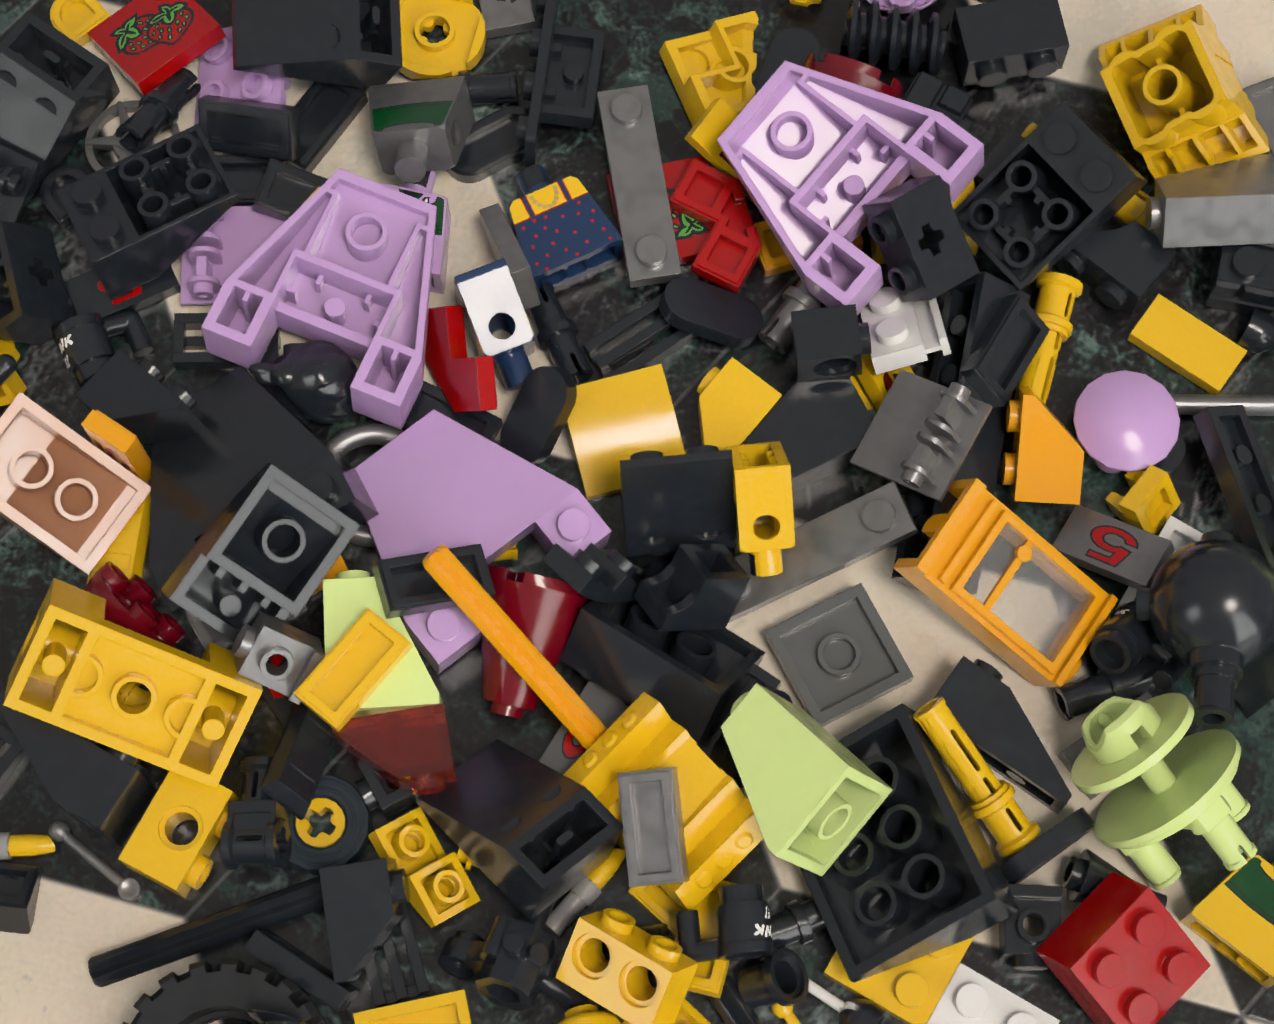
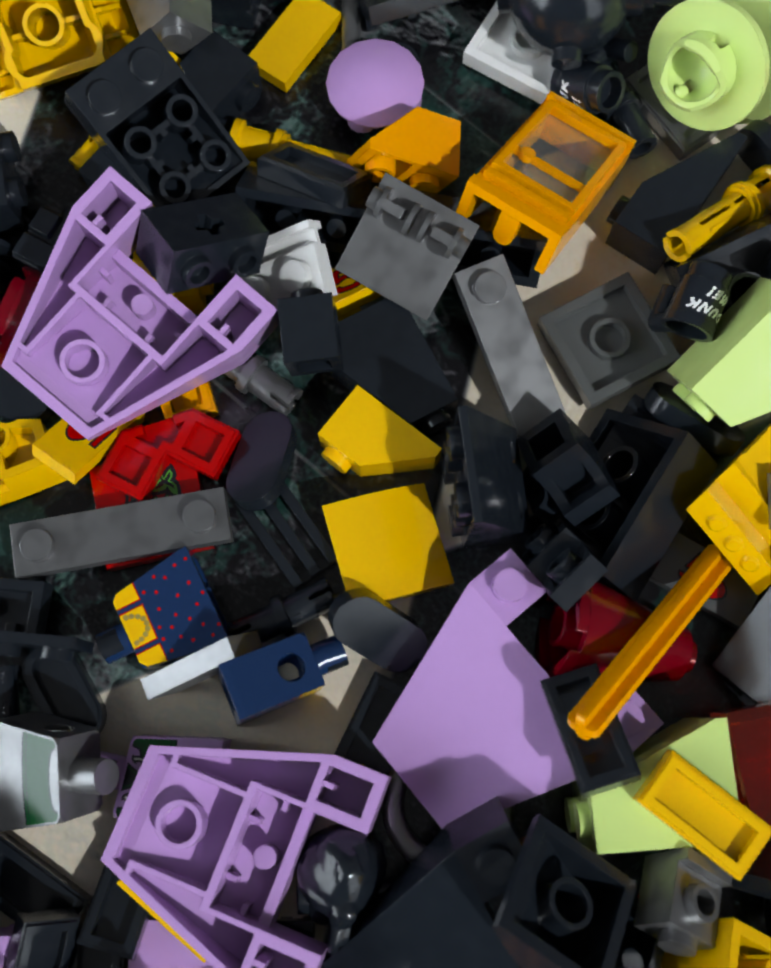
camera: 90 degrees left, 5 degrees up
(464, 381) = (344, 706): red tile -> none
(761, 489) = (497, 384): yellow torso -> none
(859, 715) = (695, 303): none -> black piece
(1112, 547) = (498, 98): flat silver tile -> none
(1148, 501) = (455, 76): yellow tile -> none

